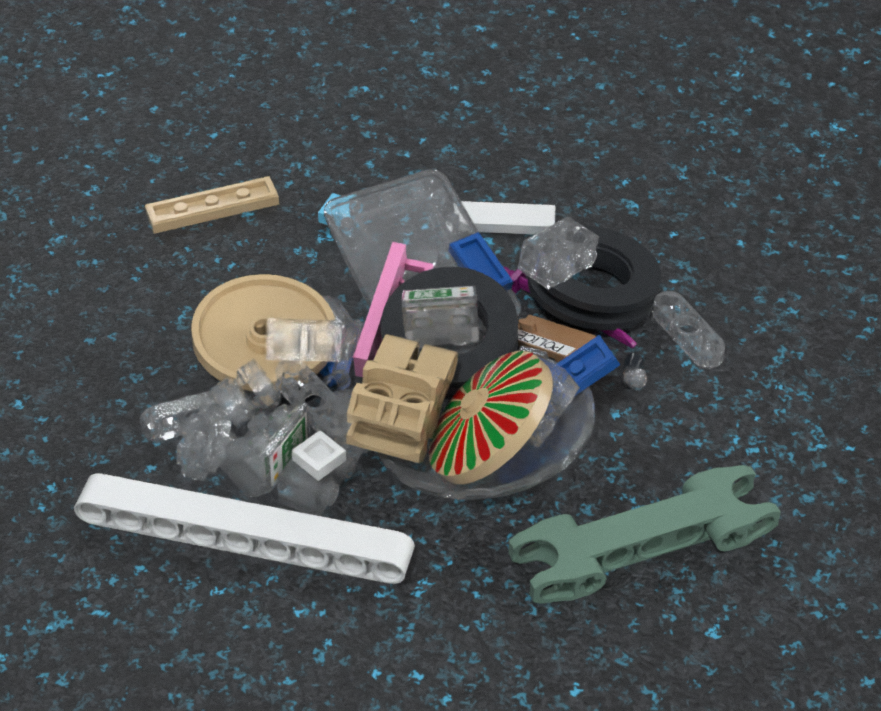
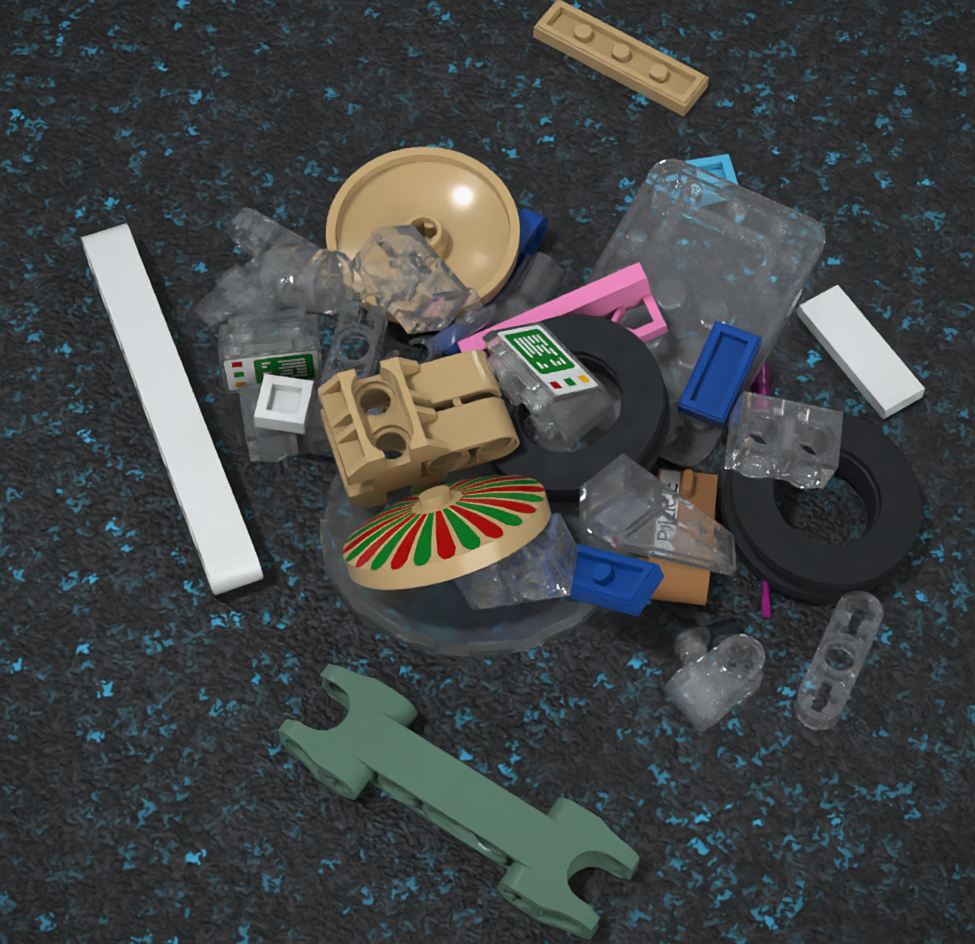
camera: 55 degrees right, 15 degrees up
(553, 333) = (652, 520): none -> clear slope
(665, 378) = (711, 687): none -> clear piece

